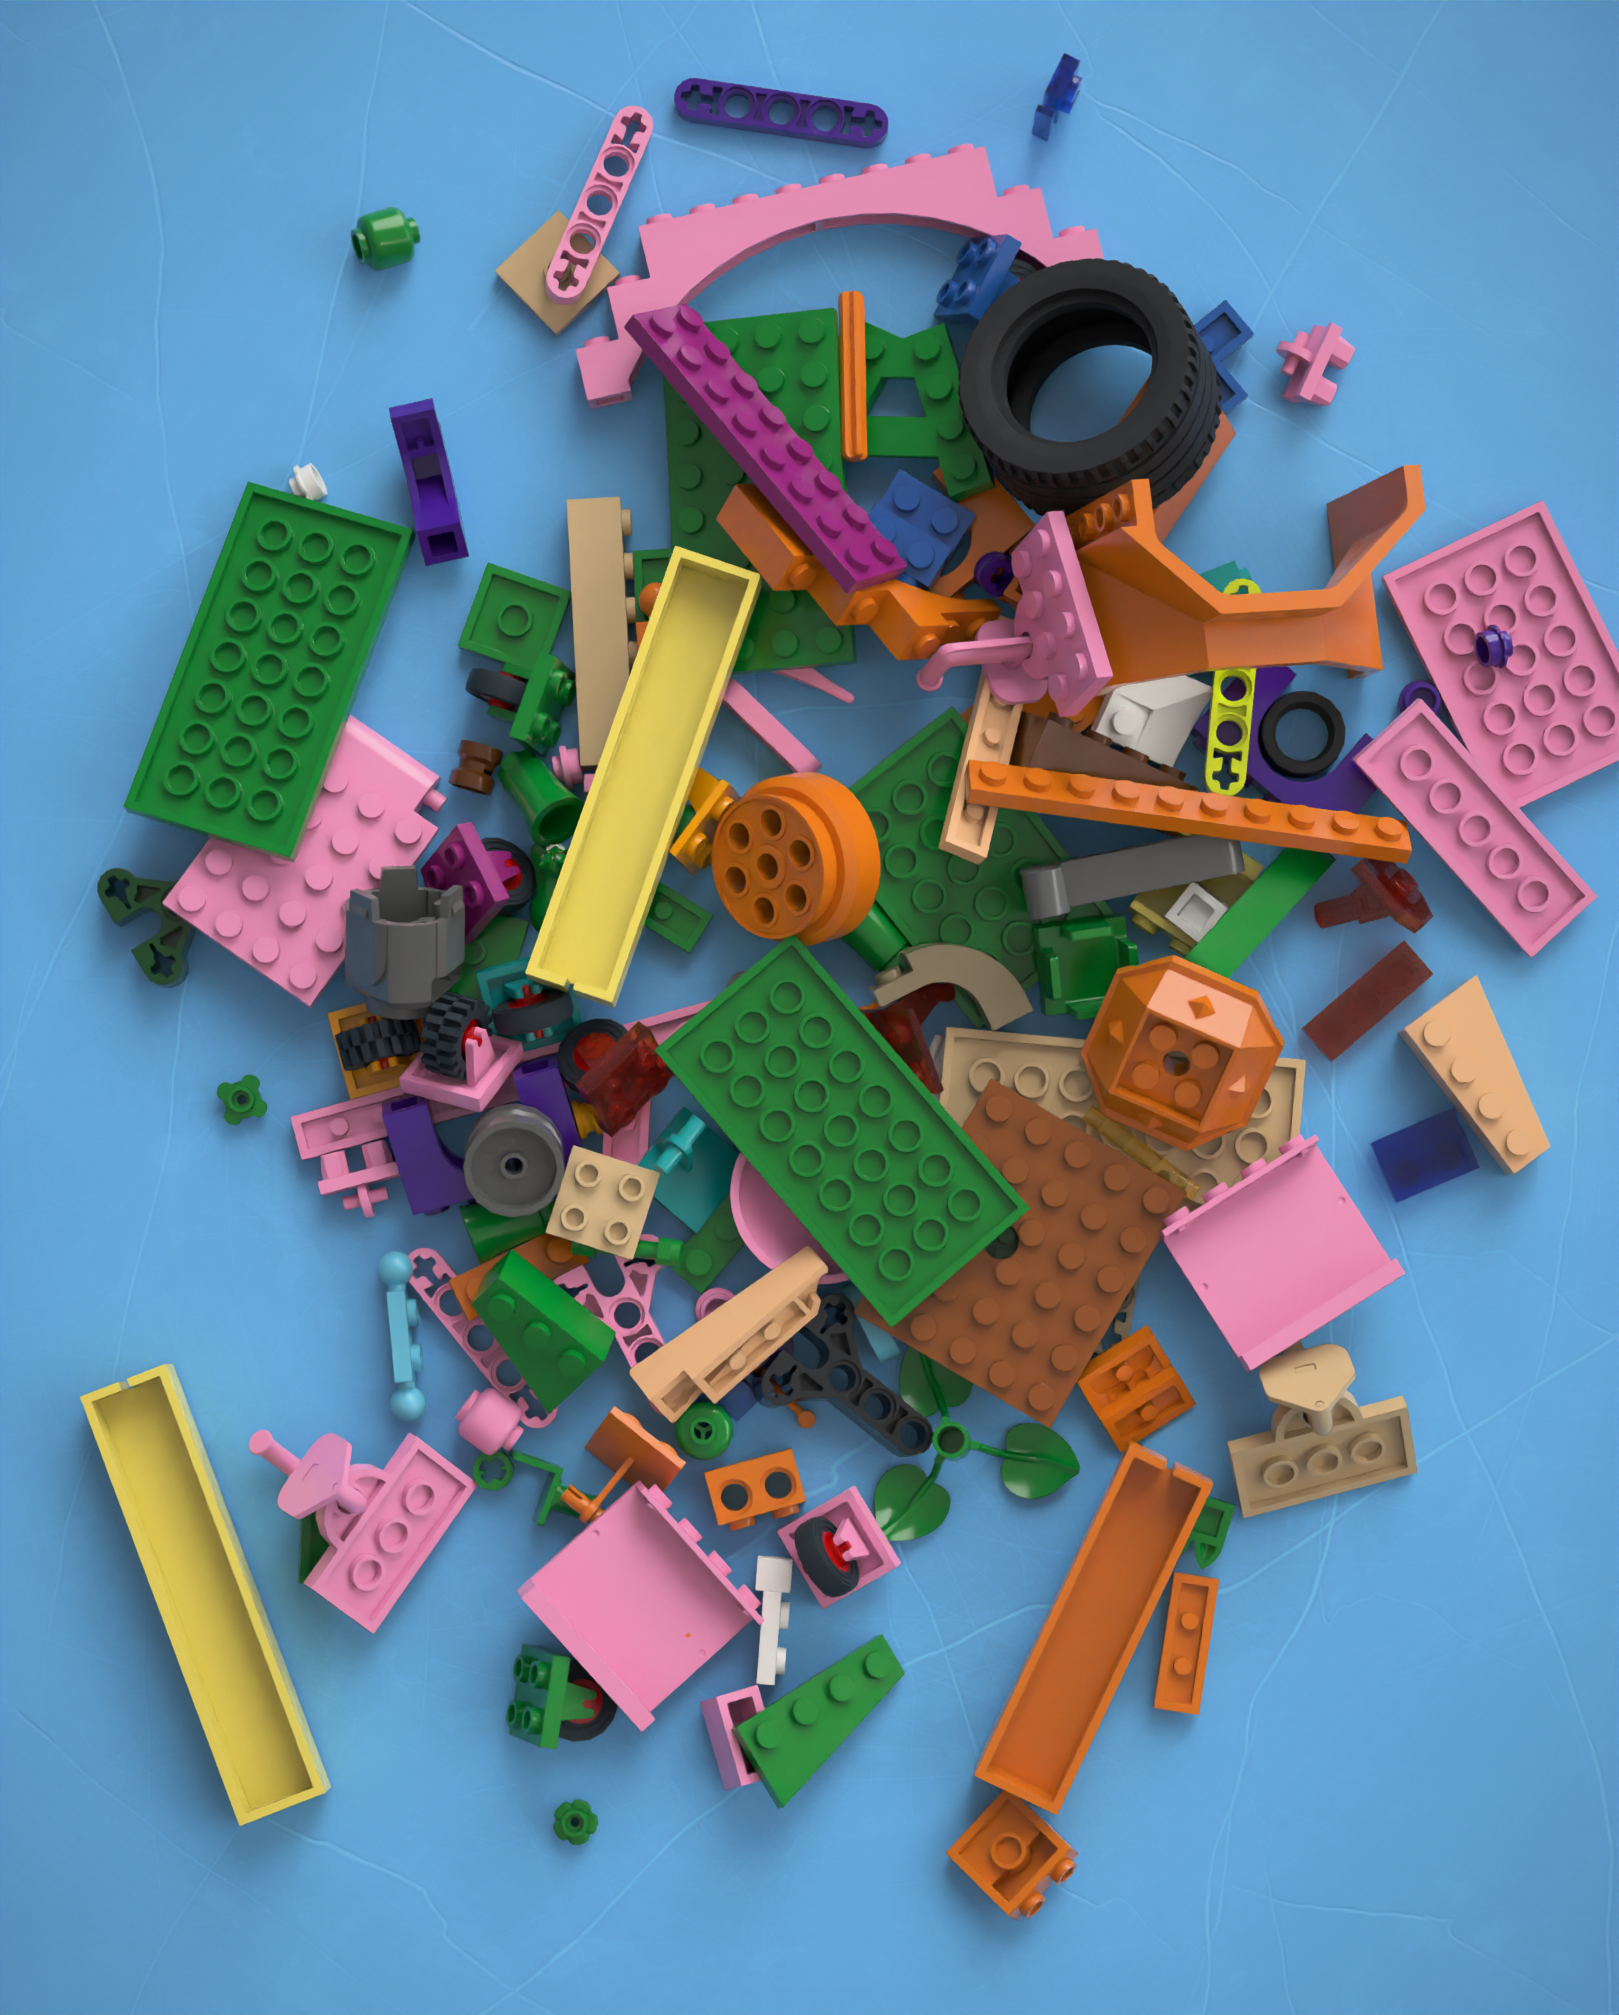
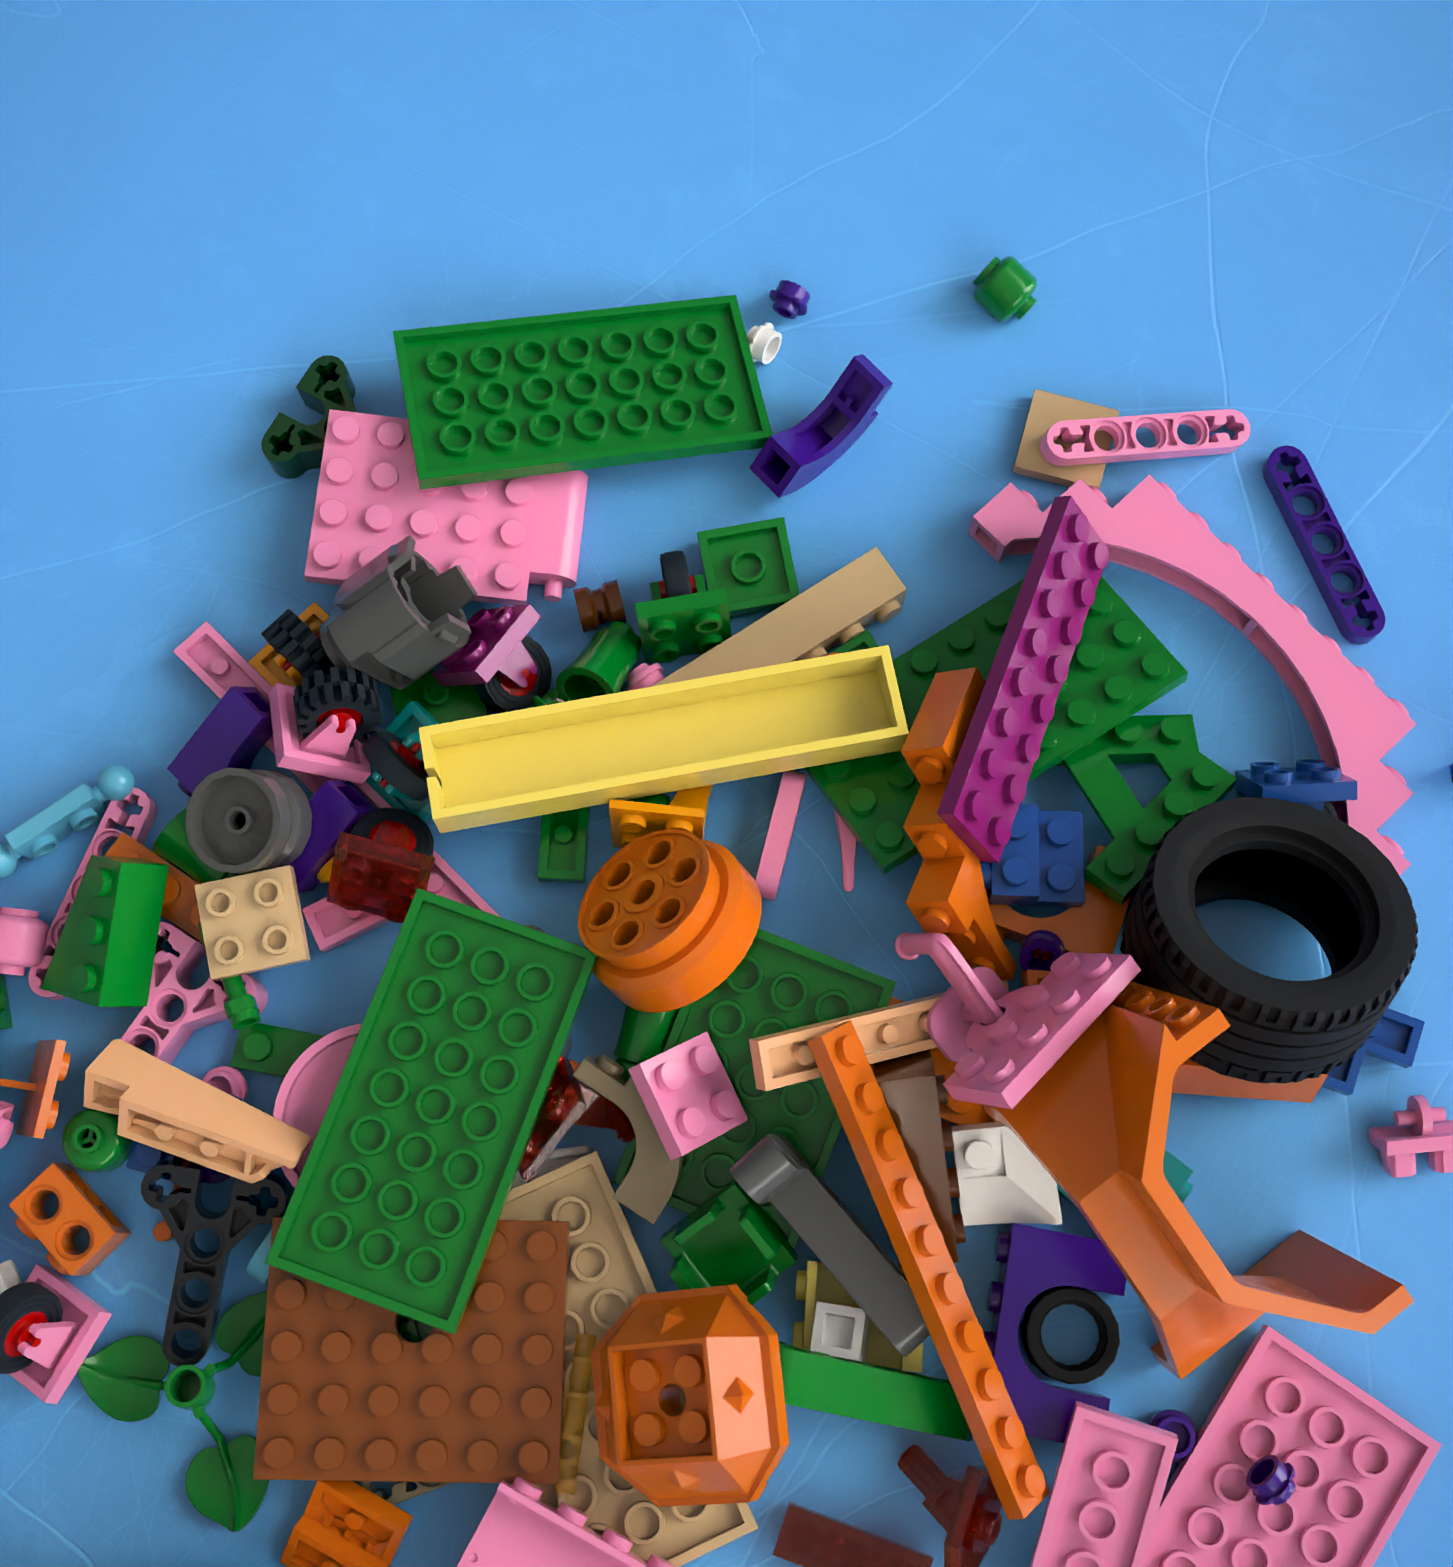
camera: 60 degrees right, 10 degrees down
(252, 1107) = (209, 587): green plate -> none
(279, 435) = (789, 299): none -> dark purple plate
(338, 1177) = (175, 690): bright pink hips -> none
(692, 1168) = (332, 986): teal plate -> none
(852, 376) = (1137, 726): orange axle -> none
(949, 924) = (688, 1095): none -> bright pink plate
(1234, 711) = (1047, 1245): neon yellow beam -> none

